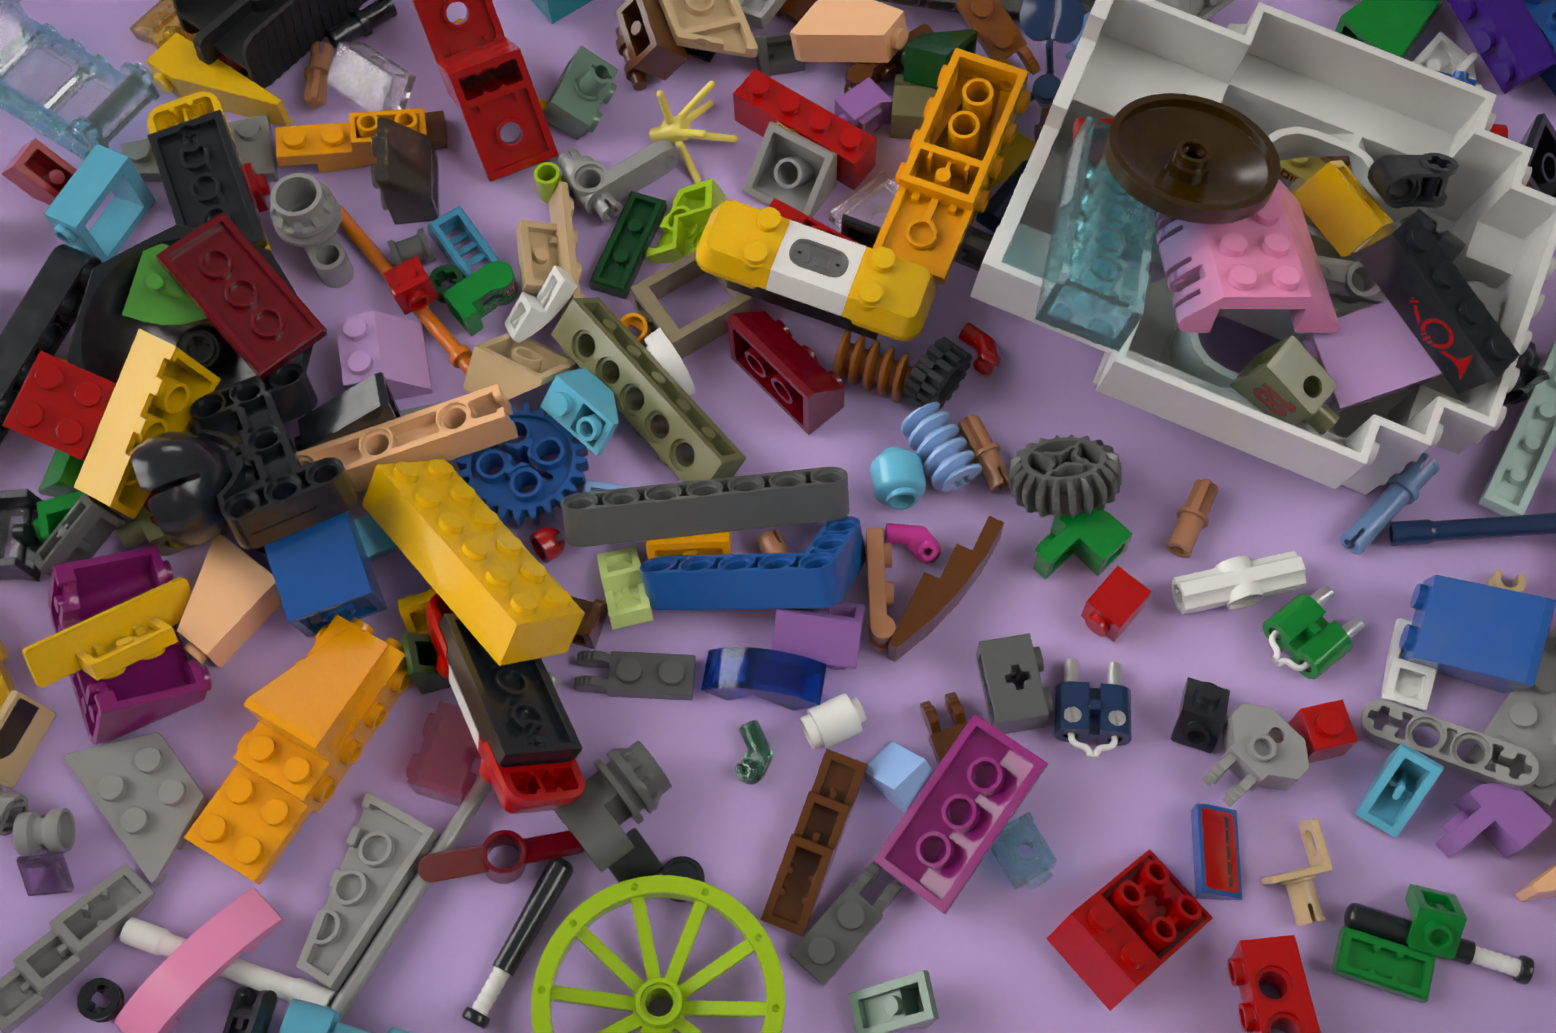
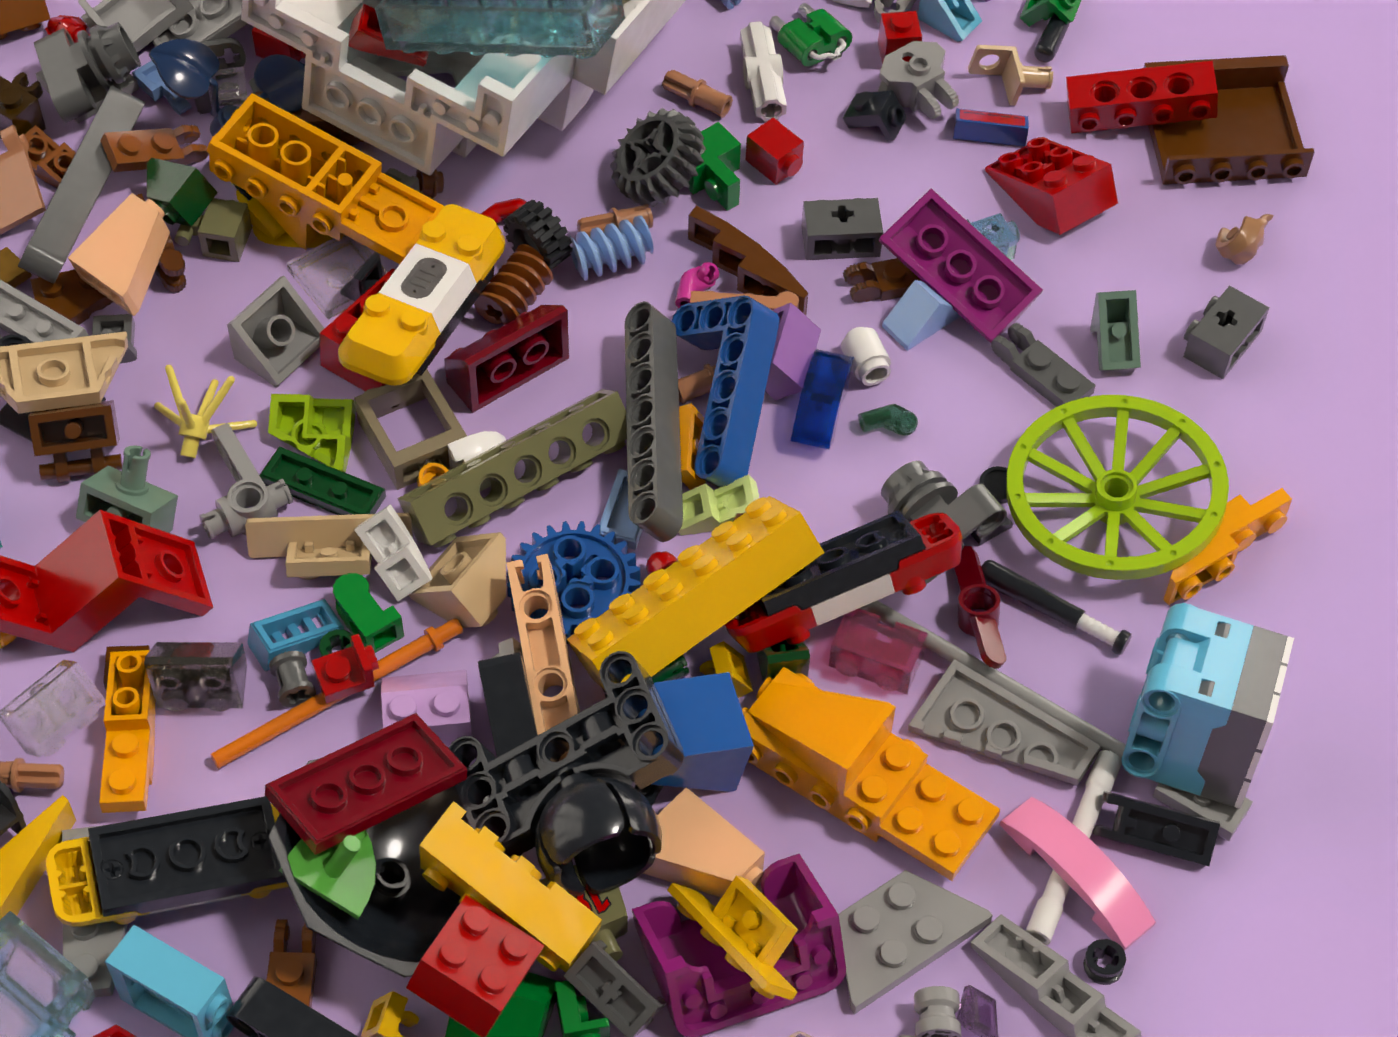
camera: 90 degrees left, 10 degrees down
(308, 217) = (245, 756): light grey beam -> none
(547, 177) = (232, 546): lime hinge -> none
(583, 407) = (532, 509): medium azure slope -> none
(639, 674) = (809, 488): dark grey hinge -> none
(766, 100) = (201, 332): red brick -> none
(814, 842) = (977, 384): reddish brown slope -> none
(865, 106) = (212, 270): medium lavender window -> none
(898, 478) = (634, 282): medium azure head -> none
(1093, 712) = (869, 177): dark blue piece -> none
(1383, 965) = (1082, 42): green plate -> none

